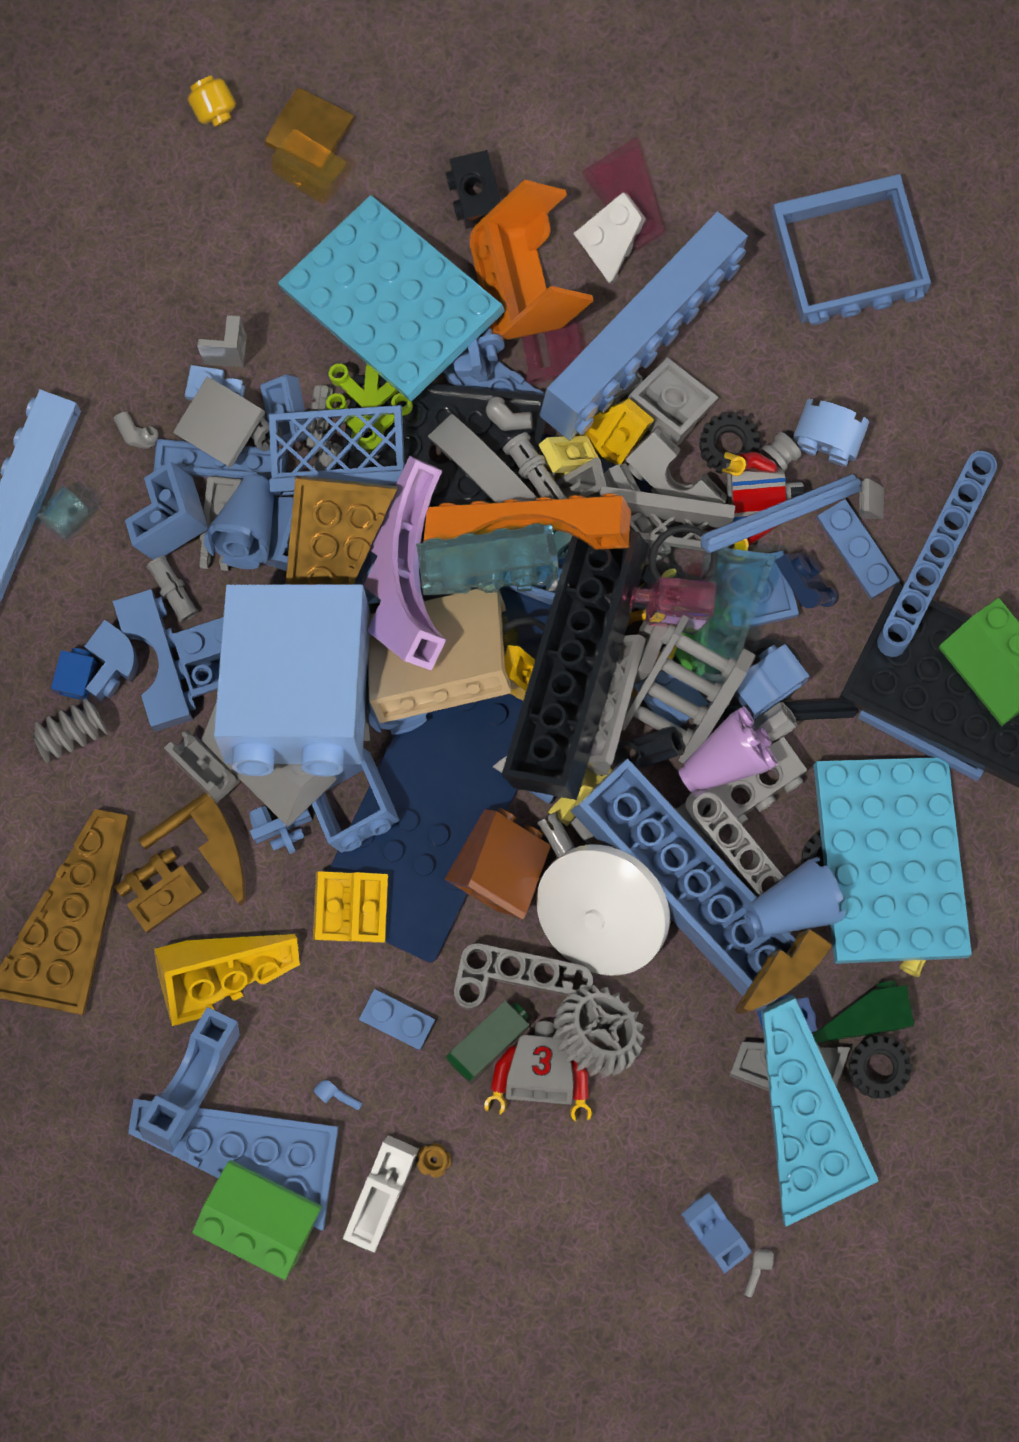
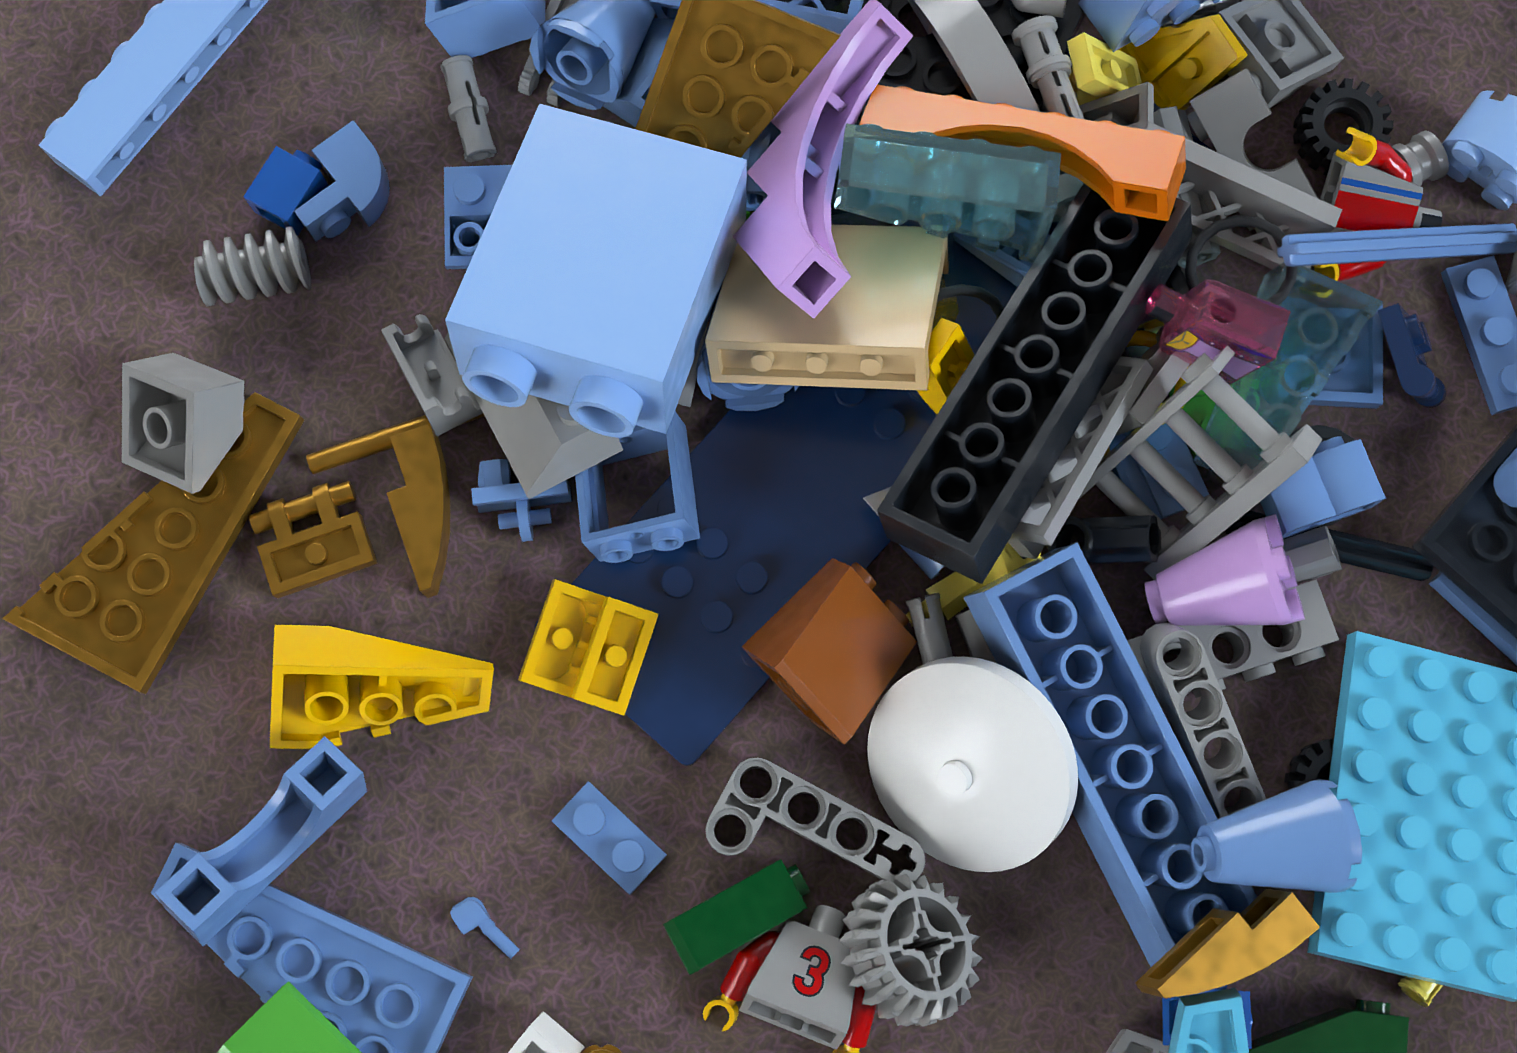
camera: 10 degrees right, 0 degrees up
(54, 839) = (179, 418): none -> light grey slope
(165, 700) = (410, 262): medium blue arch -> none

